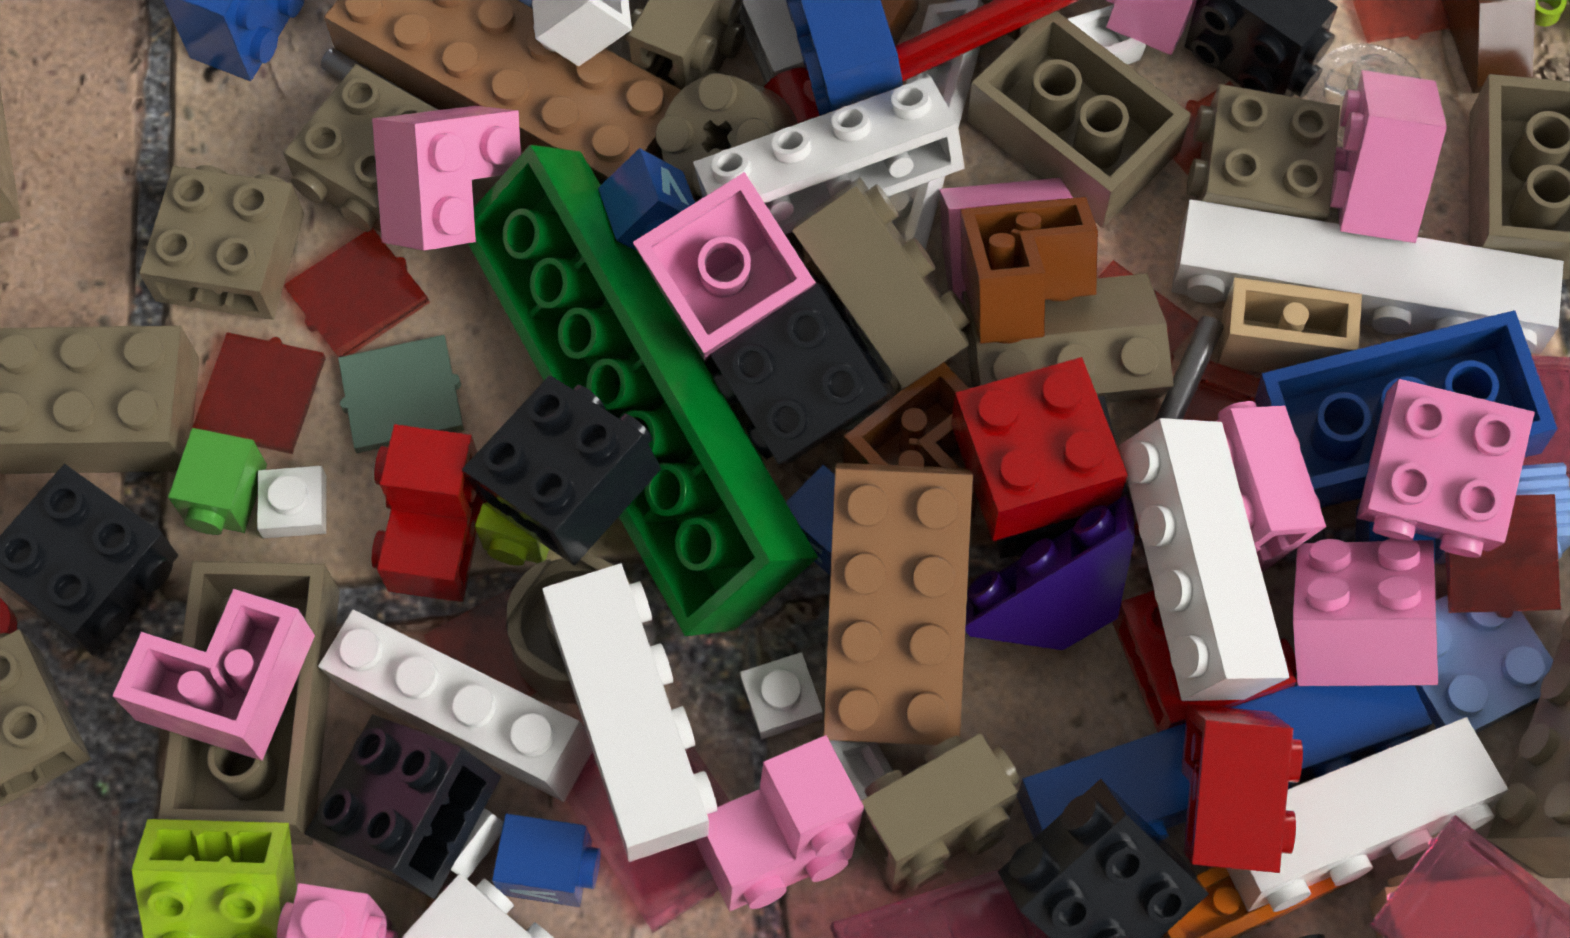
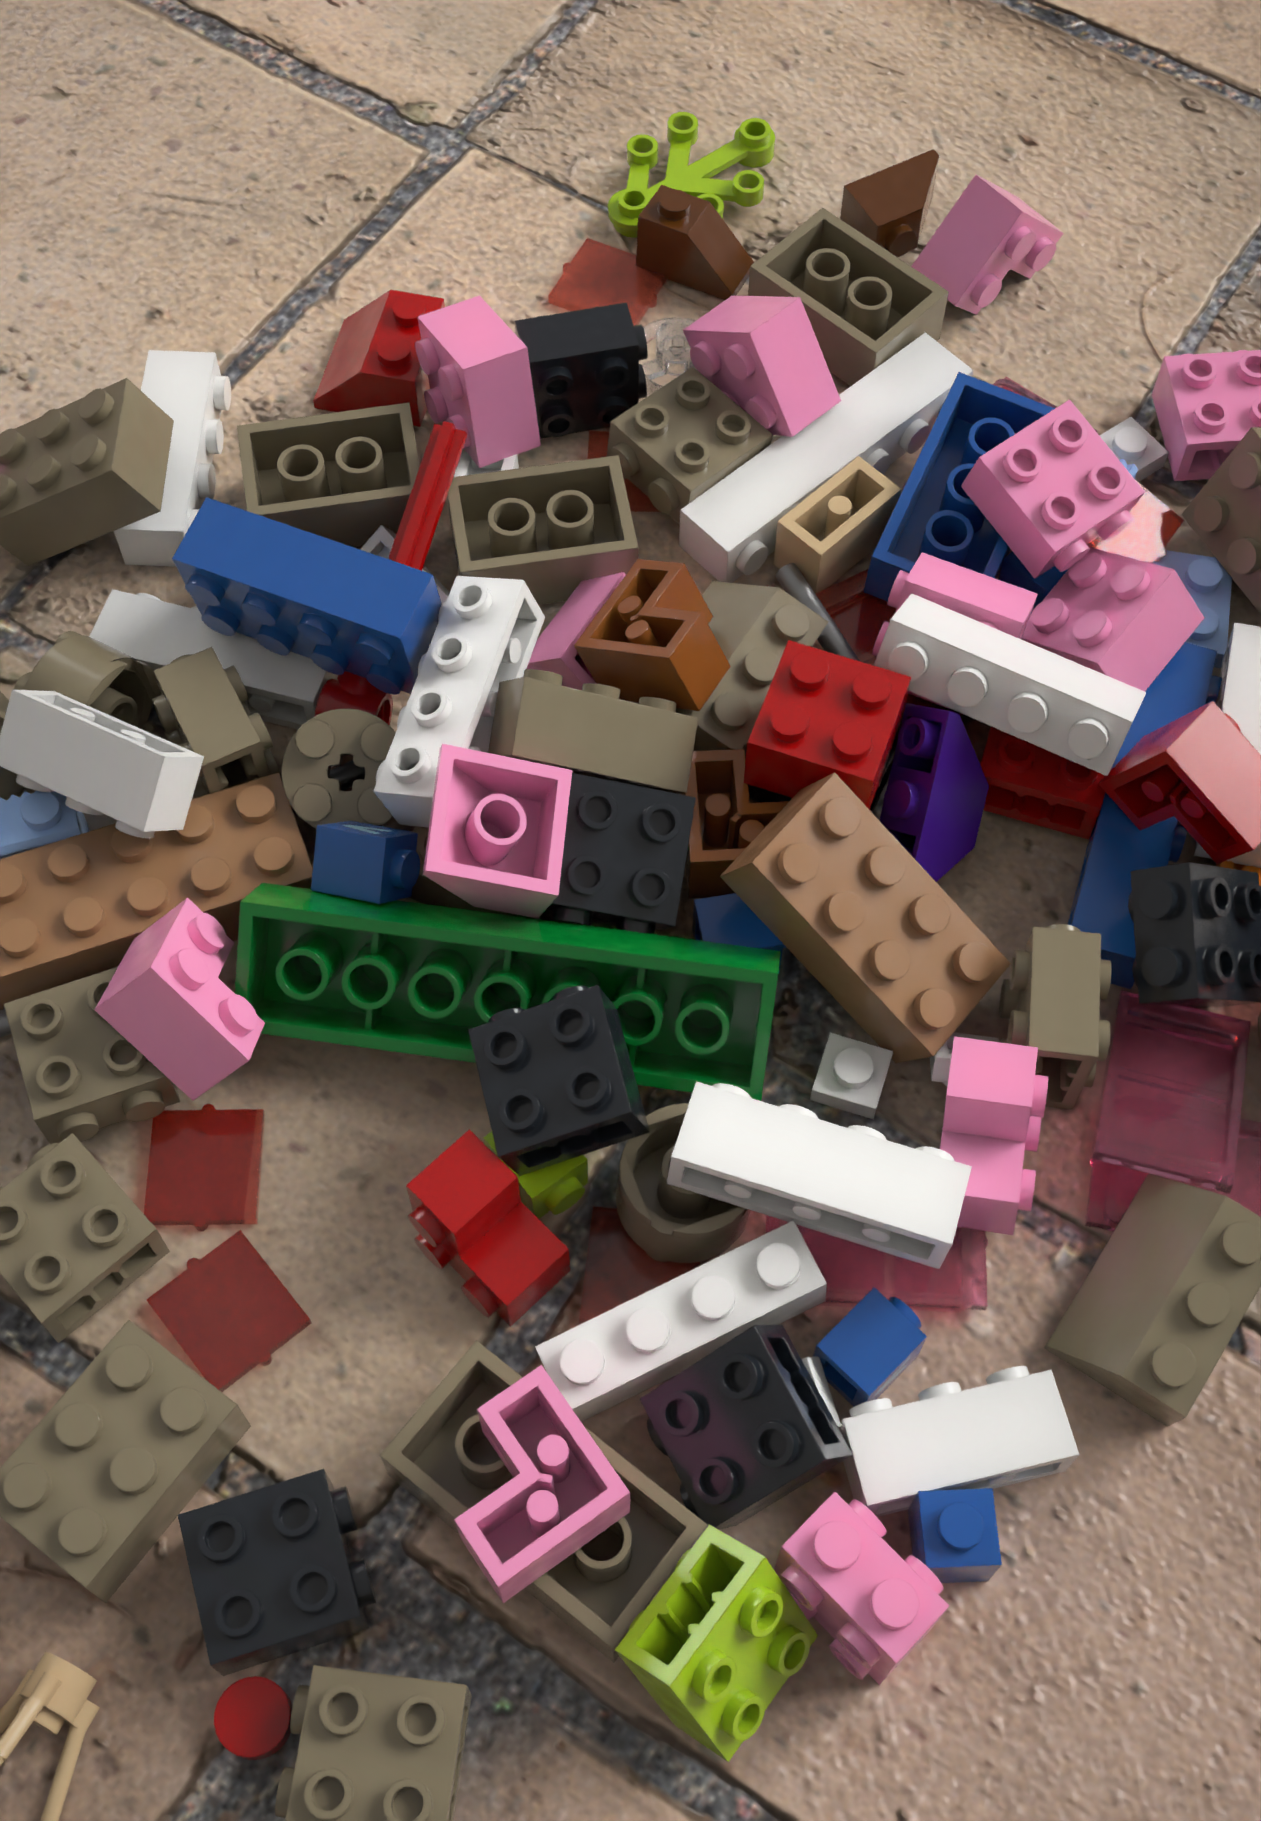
camera: 55 degrees left, 5 degrees down
(217, 482) = (297, 1398): bright green brick -> none
(291, 502) = (362, 1350): white plate -> none
(399, 386) = (333, 1193): sand green piece -> none

